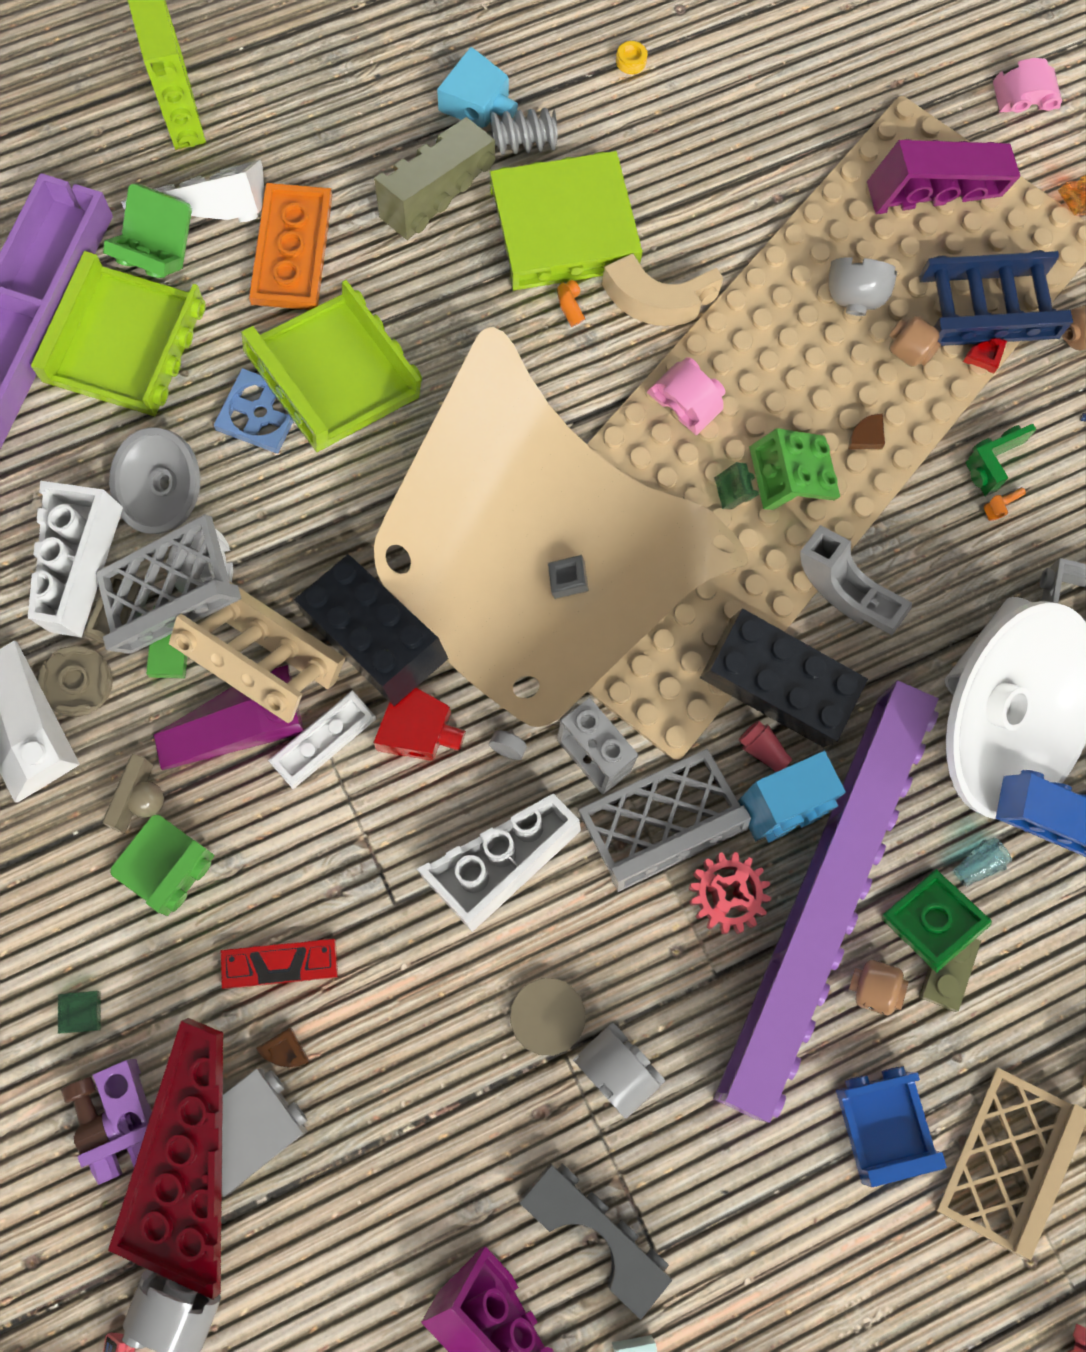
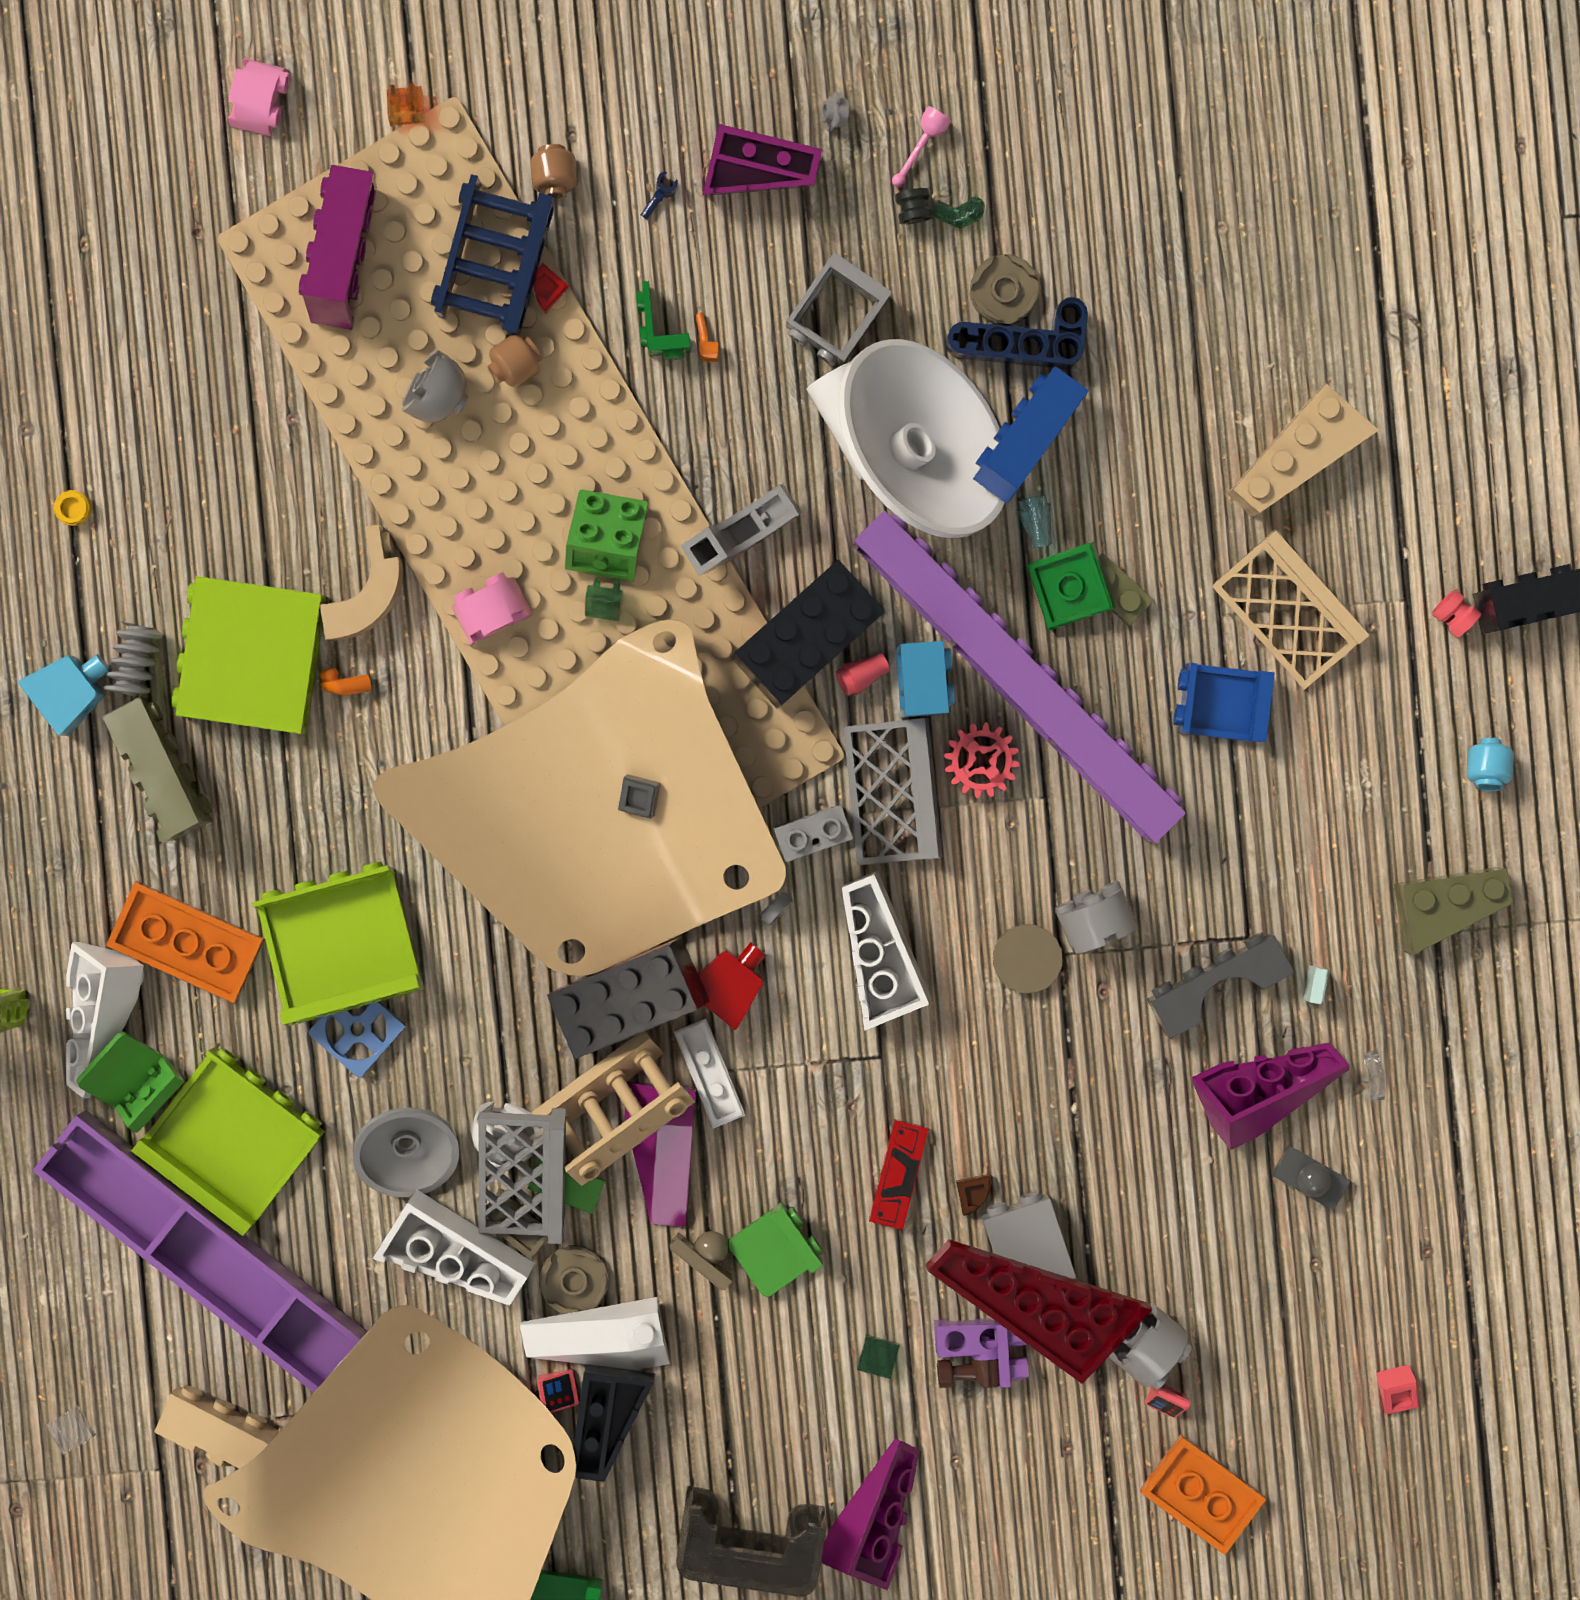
camera: 70 degrees left, 15 degrees up
(868, 433) = (592, 446): reddish brown tile -> none
(879, 987) = (1109, 662): medium nougat head -> none

